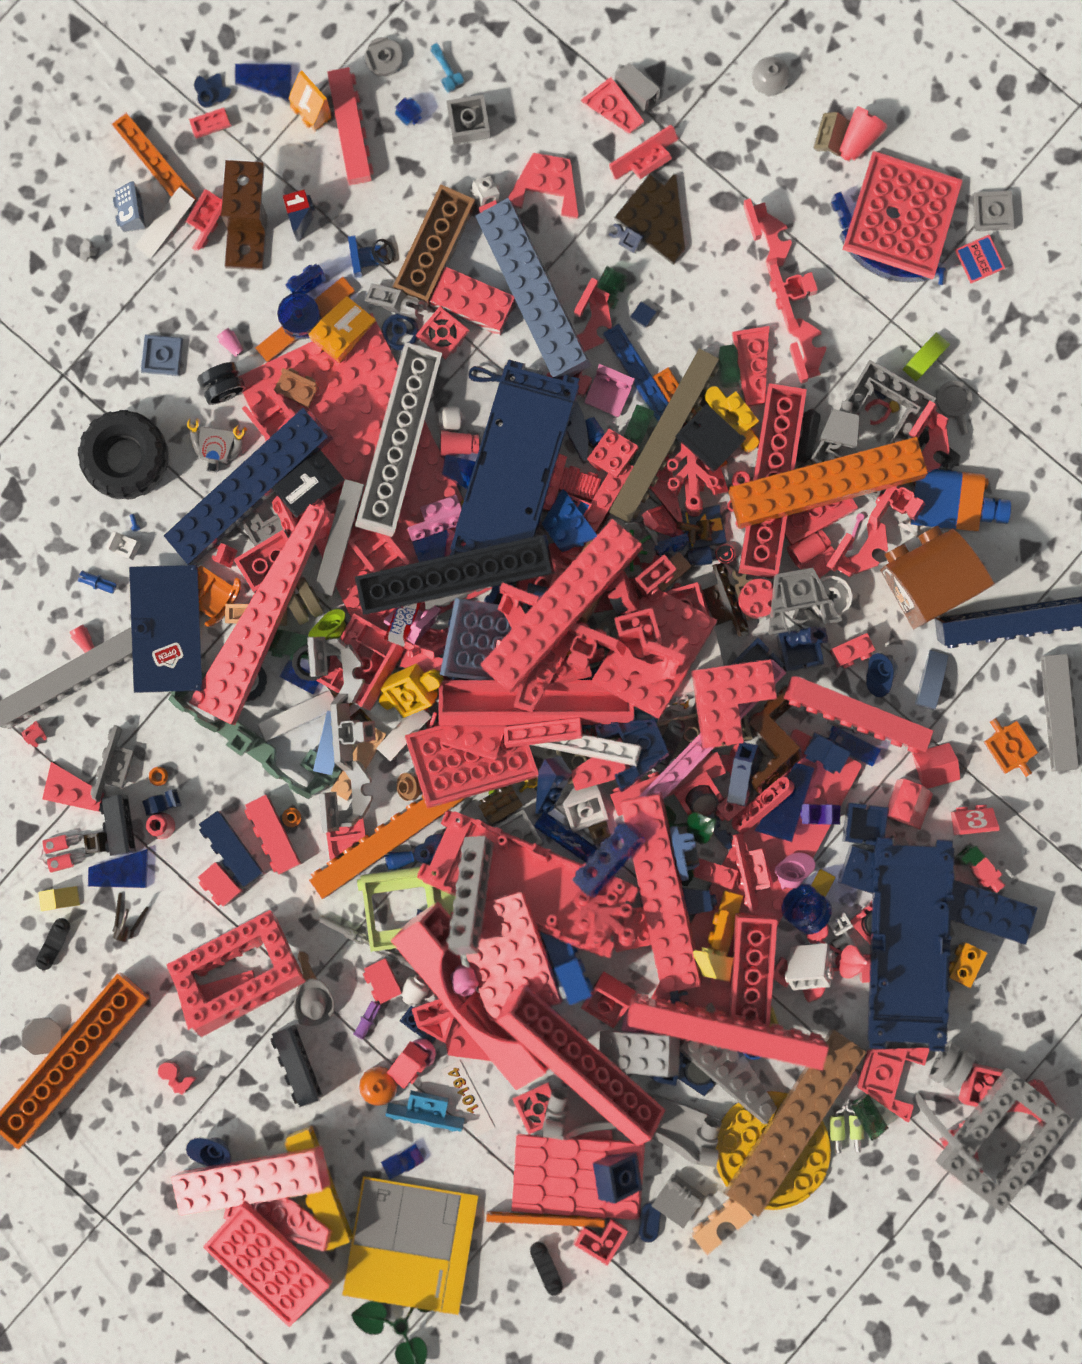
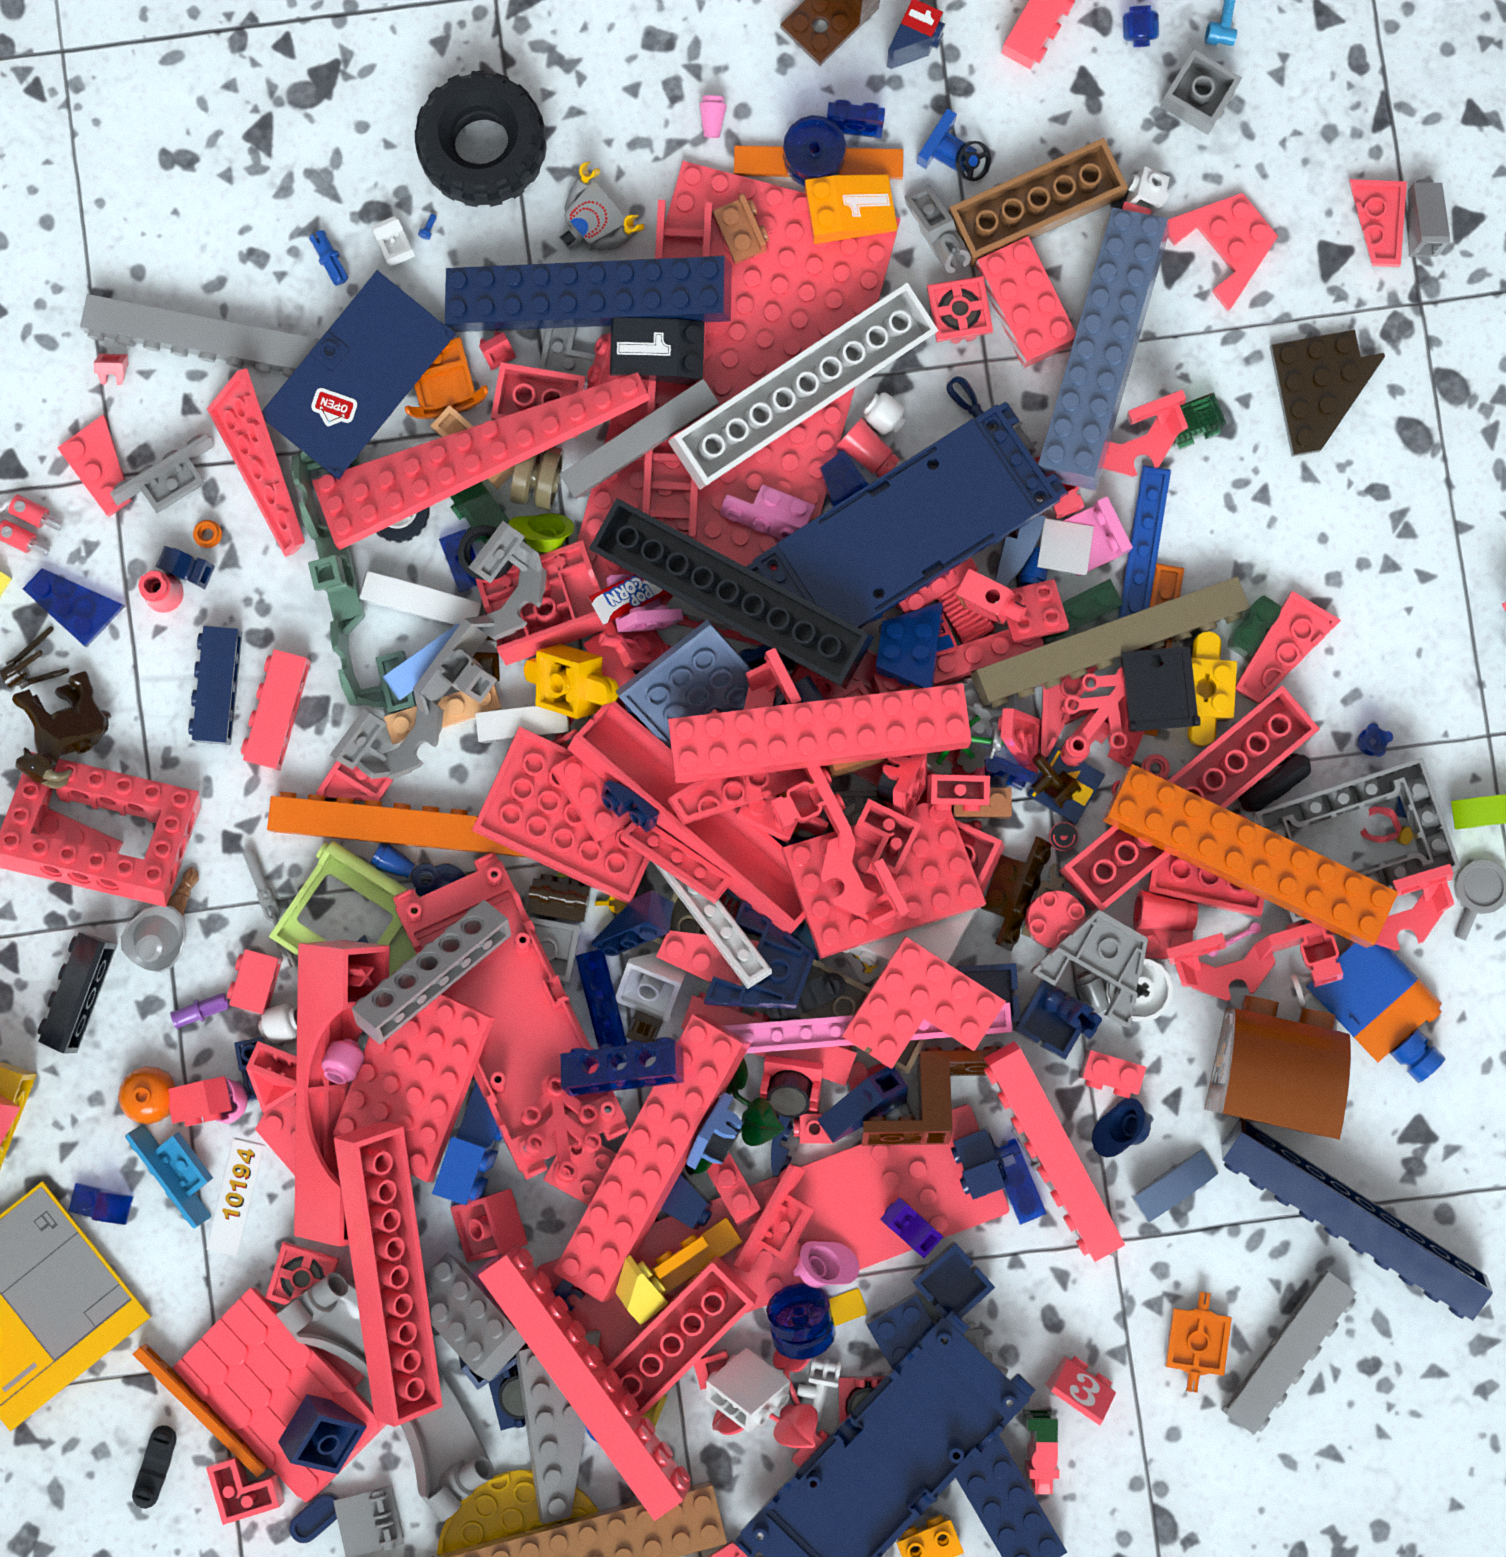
camera: 40 degrees right, 0 degrees up
(82, 638) = (258, 306): coral cone -> none
(95, 842) = (74, 548): dark brown slope -> none
(118, 825) = (114, 549): black slope -> none
(138, 710) = (248, 441): none -> coral wing
(162, 355) = (623, 65): sand blue tile -> none
(175, 939) = (61, 732): none -> dark brown animal
(219, 884) = (168, 714): coral brick -> none
(221, 383) = (660, 152): black wheel -> none
(296, 821) = (323, 711): orange plate -> none
(396, 325) = (915, 256): dark blue piece -> none
(408, 786) = (474, 788): medium nougat plate -> none
(431, 546) = (735, 540): clear blue wing -> none
(490, 726) = (623, 800): none -> dark blue slope
(579, 467) = (980, 594): none -> coral torso
(600, 407) = (1065, 546): none -> white sticker
(629, 238) = (1267, 383): plate -> none
(643, 314) = (1207, 484): dark blue tile -> none
(646, 156) = (1369, 306): coral bracket -> none
(700, 556) = (1033, 814): dark blue brick -> none
(761, 802) = (855, 1154): coral beam -> none
(784, 818) = (872, 1188): clear blue wing -> none
(794, 288) = (1406, 601): coral piece -> none
(841, 368) = (1382, 739): none -> clear blue brick
(842, 427) = (1322, 806): light grey torso -> none
(909, 803) = (1024, 1303): coral slope -> none
(937, 766) = (1094, 1289): coral slope -> none
(951, 459) = (1419, 953): black piece -> none

